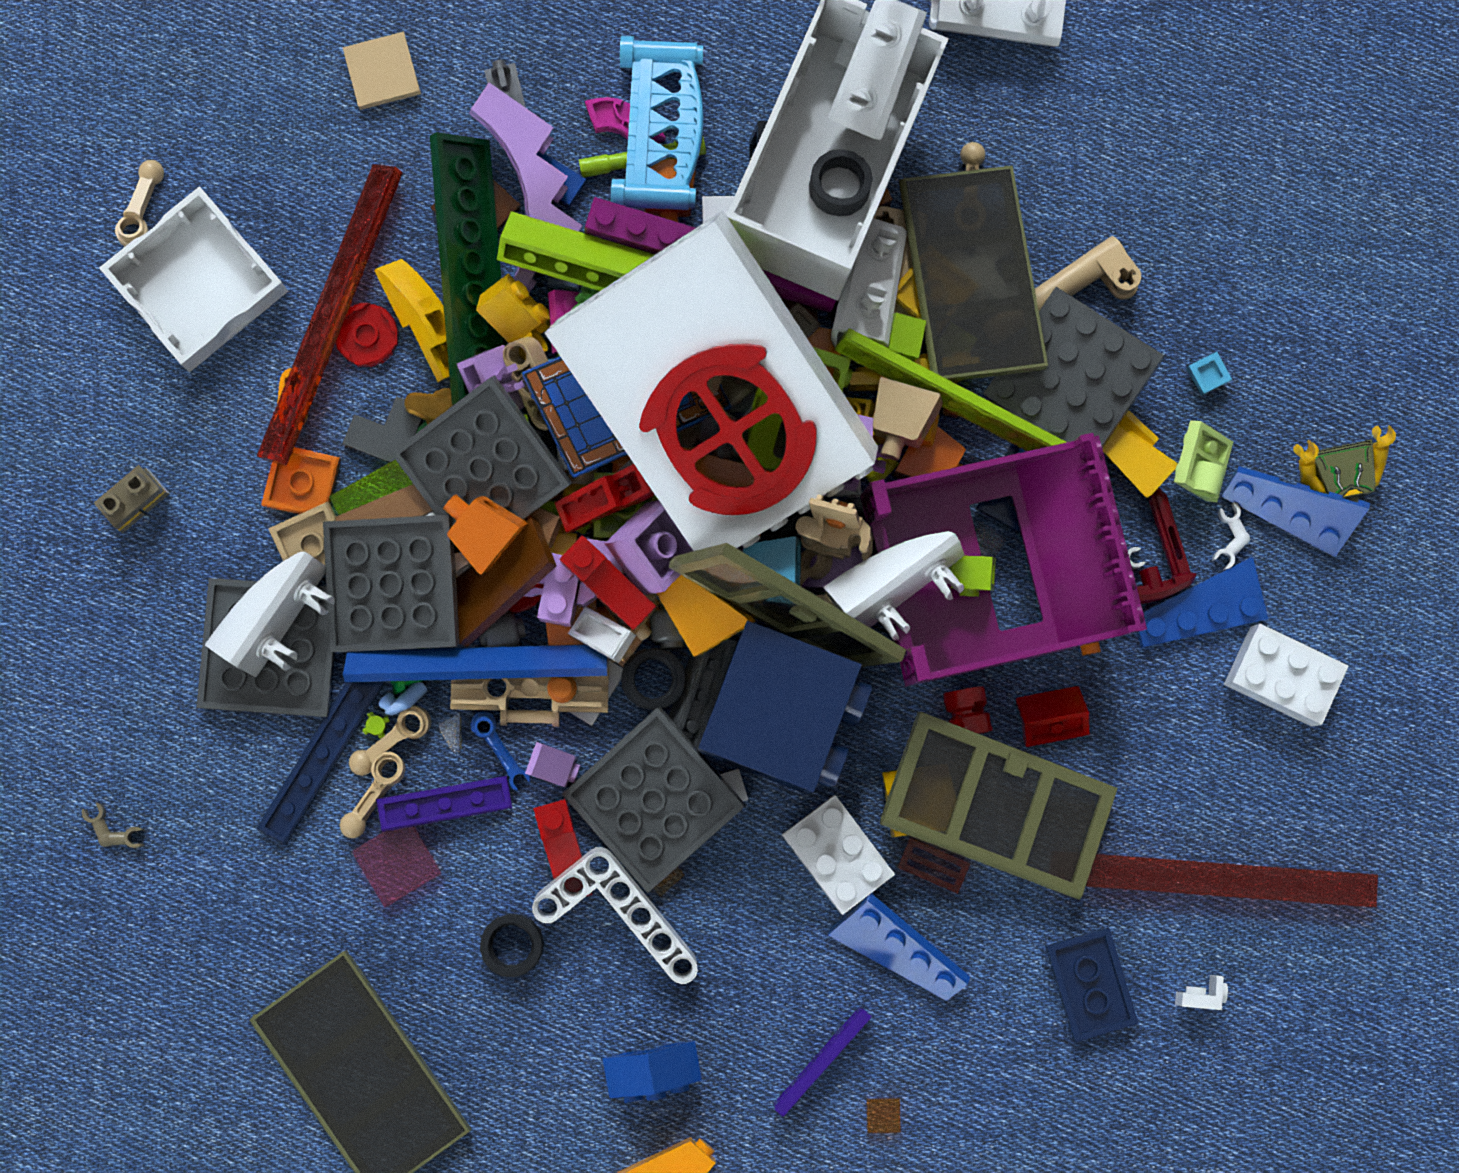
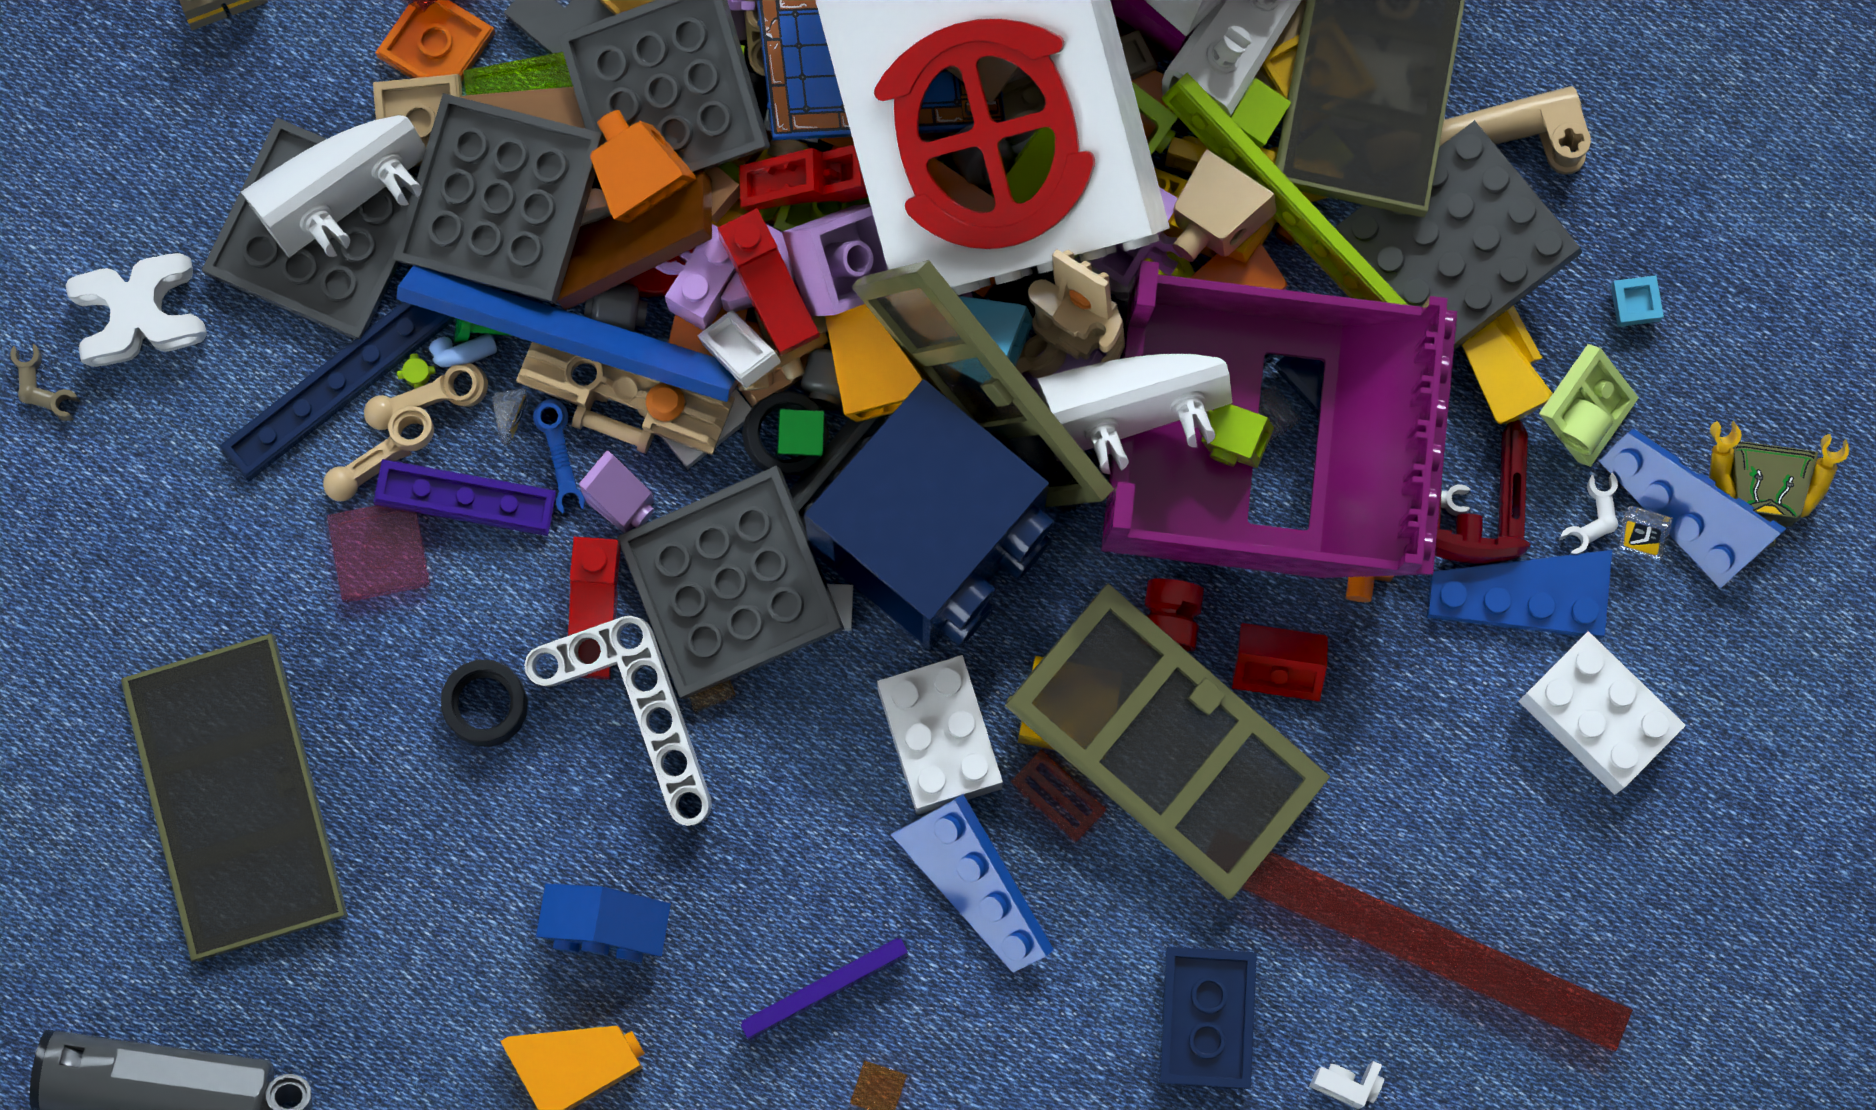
camera: 25 degrees right, 5 degrees down
(160, 752) = (136, 310): none -> white piece
(665, 677) = (800, 432): none -> green tile
(1271, 536) = (1645, 532): none -> slope

